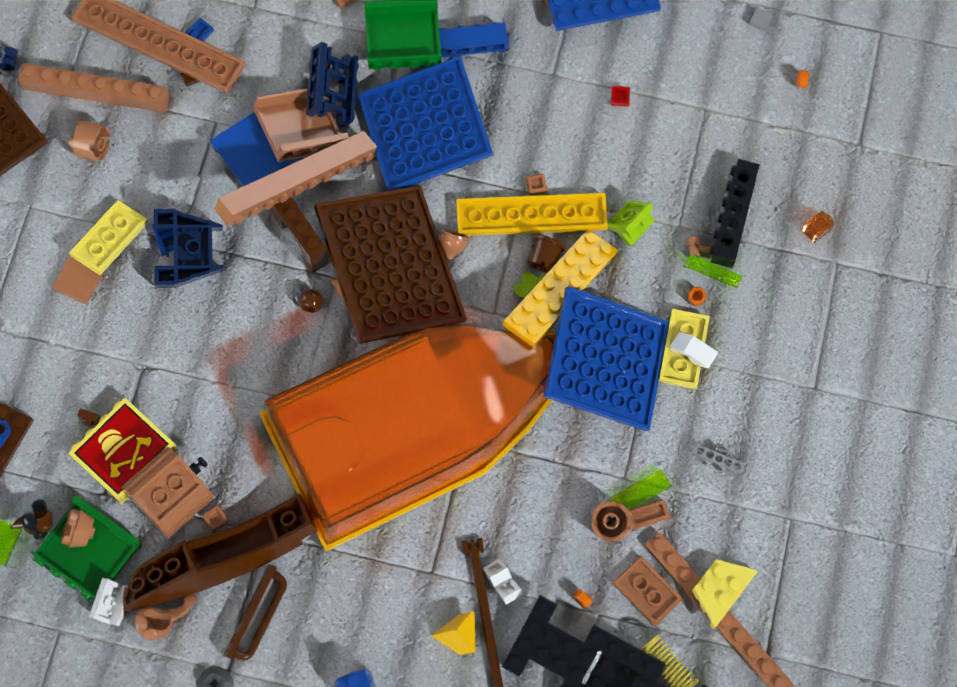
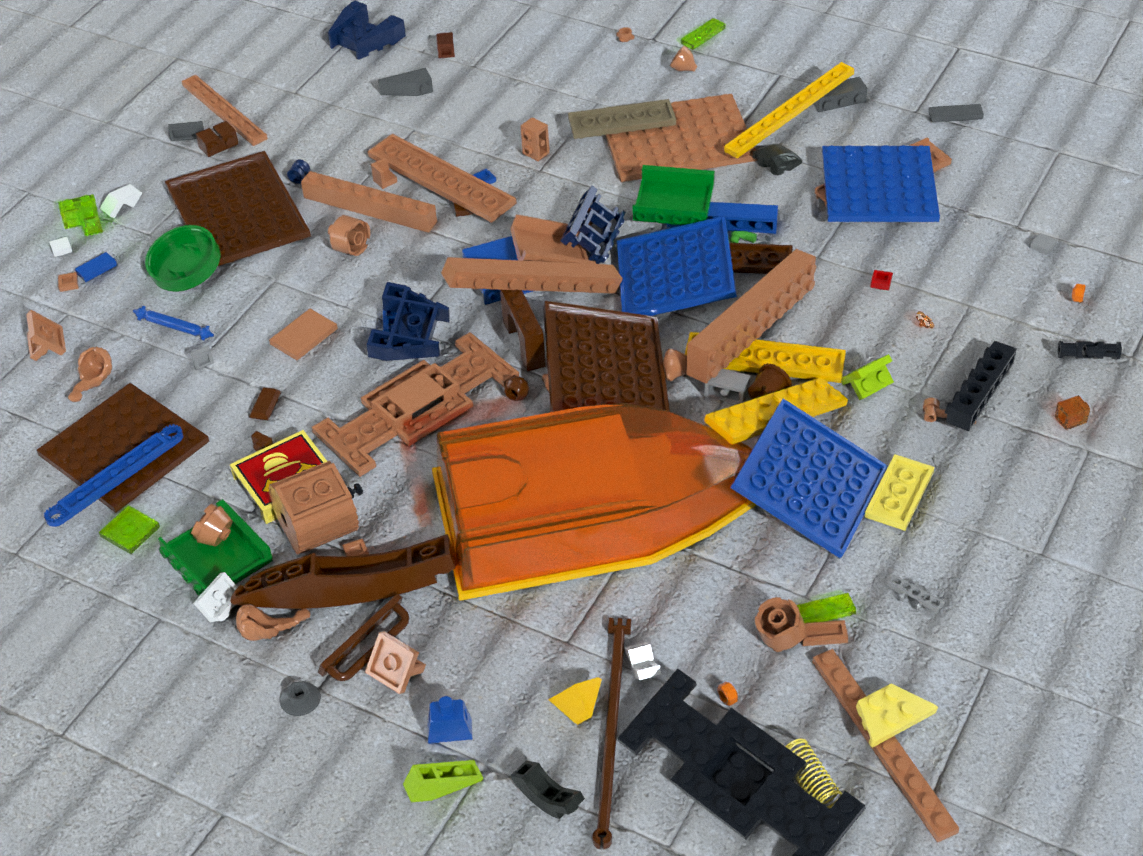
camera: 20 degrees right, 25 degrees down
(37, 523) = (172, 516): cap -> none
(73, 365) = (265, 404): none -> reddish brown tile
(96, 46) = (382, 174): none -> nougat panel
(108, 237) = (338, 308): light yellow plate -> none
(212, 331) = (396, 401): none -> nougat piece
(289, 636) = (393, 662): none -> bracket
(476, 61) = (744, 235): none -> bright green arm
(501, 87) = (757, 257): none -> reddish brown tile
(505, 257) = (728, 386): none -> light grey brick
(513, 177) = (750, 316): none -> nougat brick
(536, 184) = (777, 334): nougat tile -> none
(647, 591) = (805, 703): nougat tile -> none
(668, 138) = (924, 320): none -> clear orange plant
(696, 296) = (924, 450): orange tile -> none
(696, 350) = (911, 487): white slope -> none
(713, 271) = (947, 431): clear neon green tile -> none
(822, 147) = (1090, 349): none -> black piece

